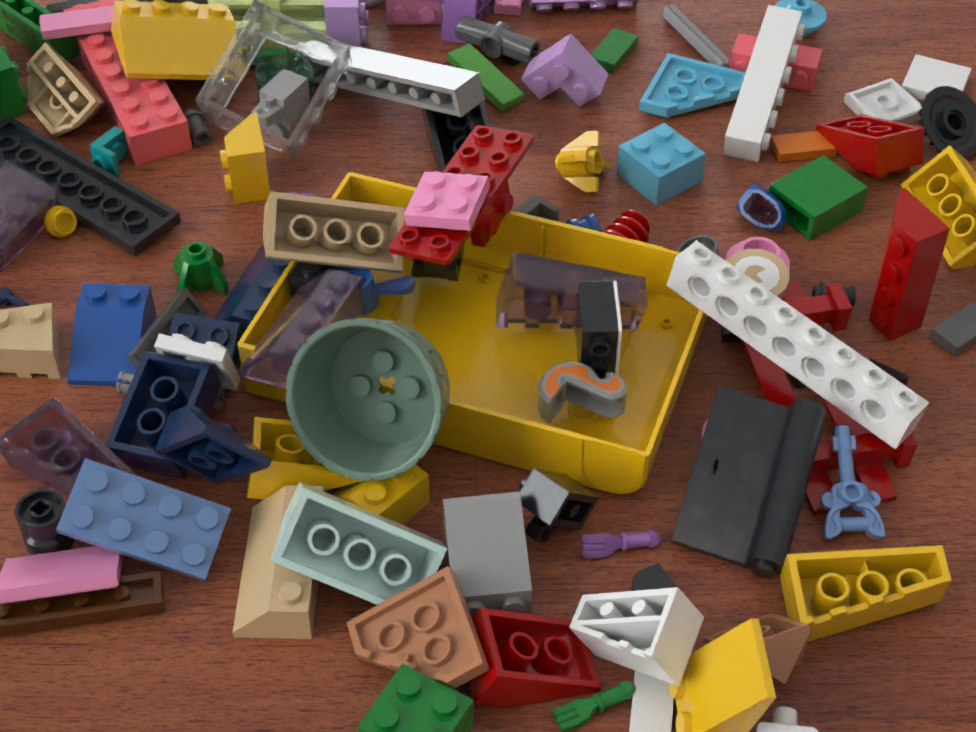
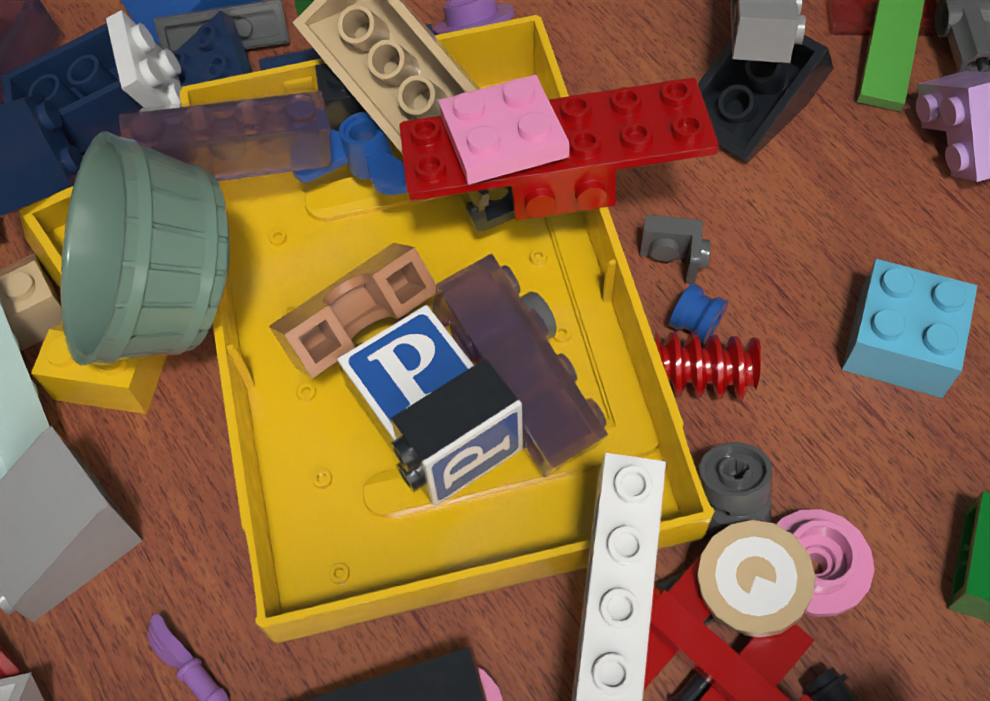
camera: 60 degrees right, 15 degrees up
(473, 360) = (377, 289): none -> nougat arch
(538, 340) = (401, 367): none -> piece
(555, 502) = (173, 550): brick -> none
(580, 162) = (824, 238): yellow brick -> none
(582, 387) = (363, 447): light grey animal -> none
(762, 208) = (935, 507): rock -> none

